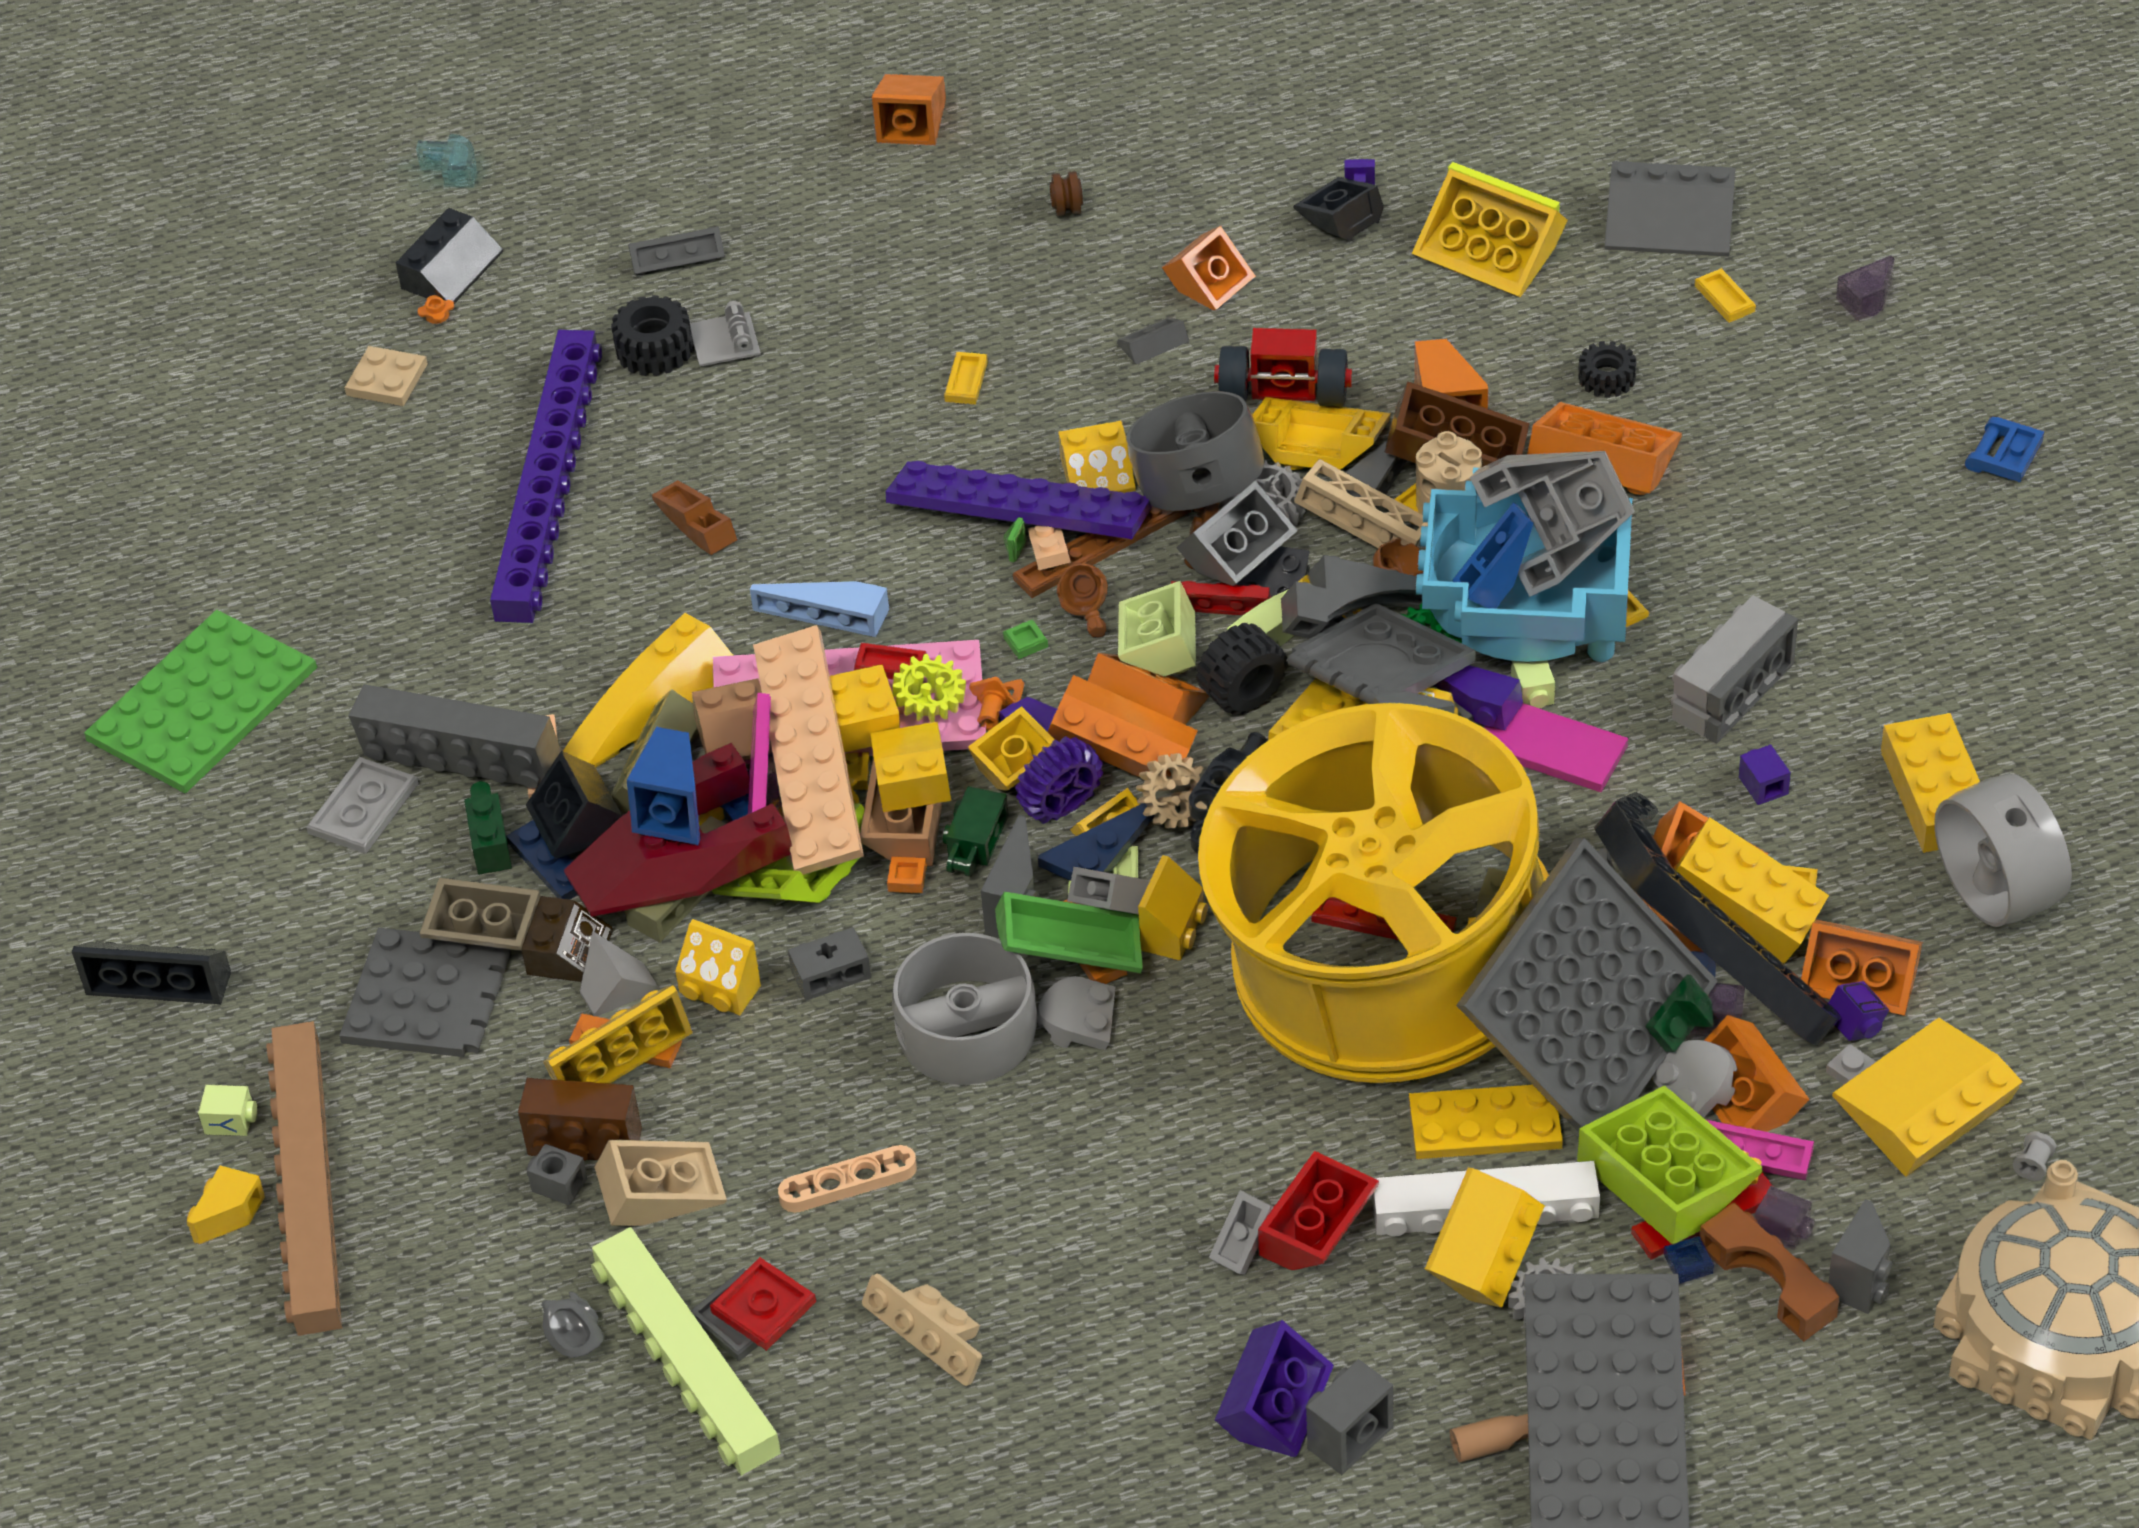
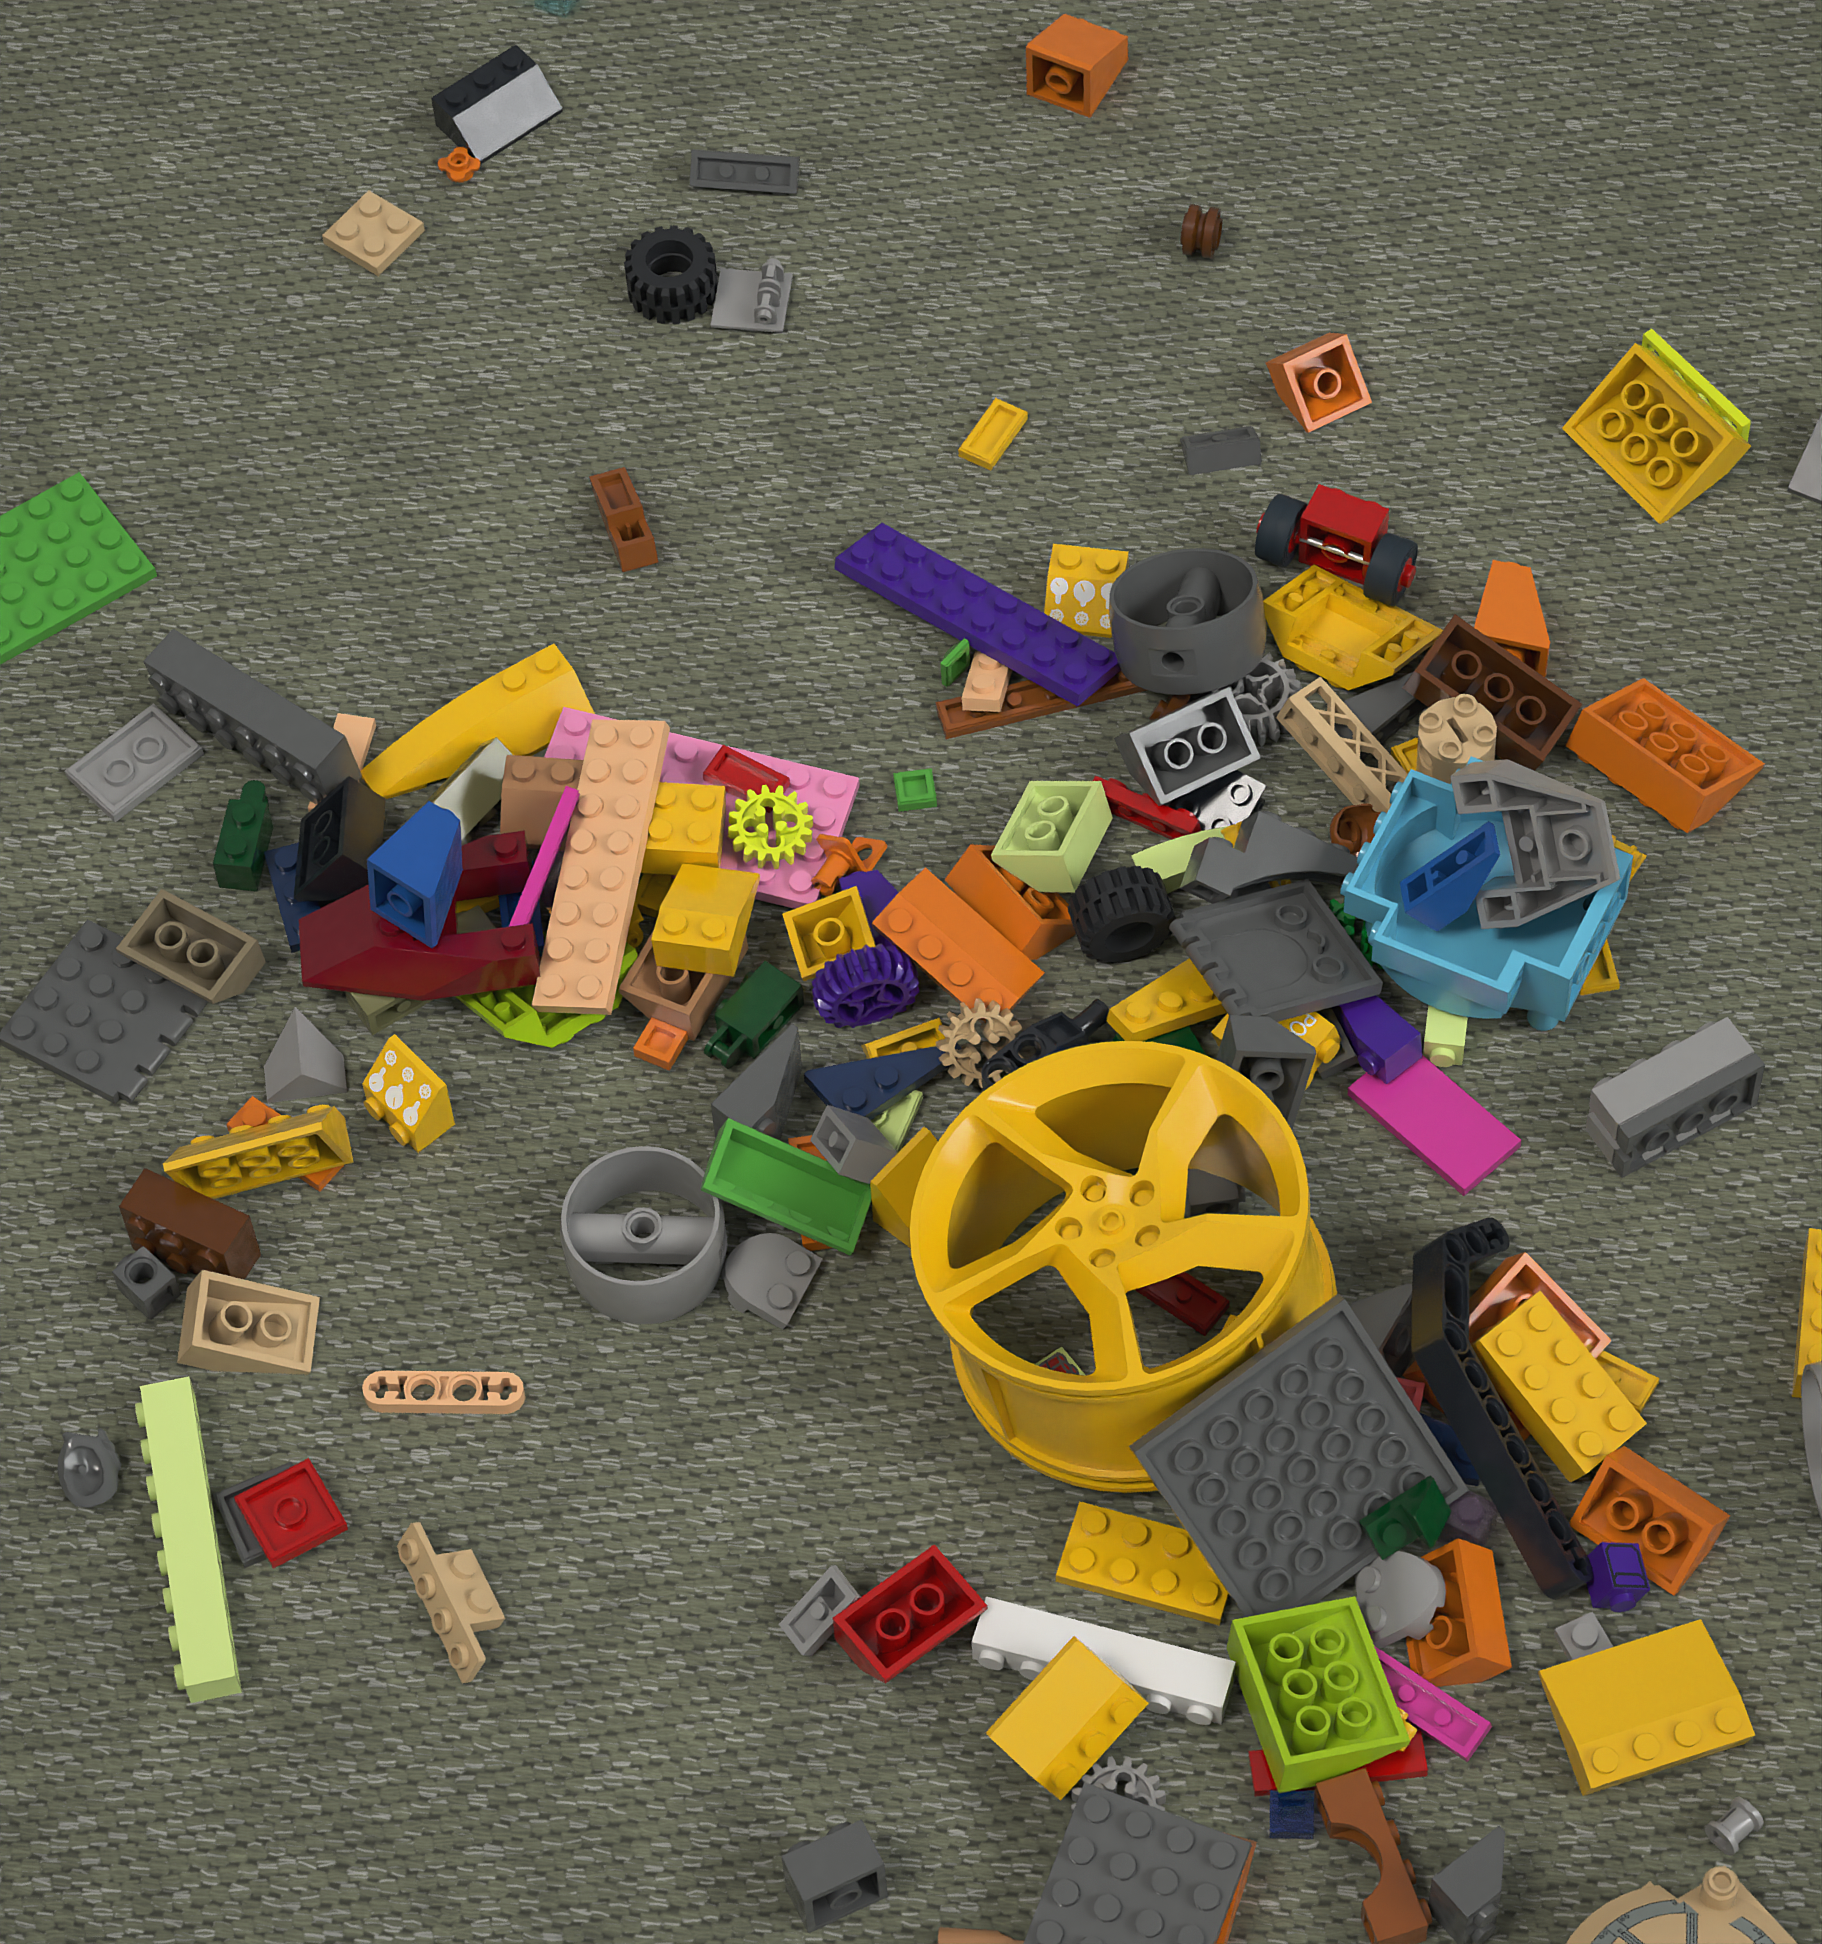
camera: 20 degrees right, 10 degrees up
(546, 477) = (486, 417): dark purple brick -> none
(560, 939) = (263, 997): dark brown slope -> none
(829, 963) = (515, 1137): dark grey brick -> none
(837, 605) = (725, 680): light blue slope -> none
(1083, 593) = (995, 757): dark orange hair -> none
(1273, 1388) = (774, 1805): dark purple slope -> none
(1343, 207) = (1504, 346): black slope -> none
(1360, 170) = (1544, 309): dark purple tile -> none
(1606, 381) = (1714, 671): black tyre -> none
(1764, 774) = (1651, 1239): dark purple brick -> none
(1785, 1216) = (1417, 1802): clear purple brick -> none

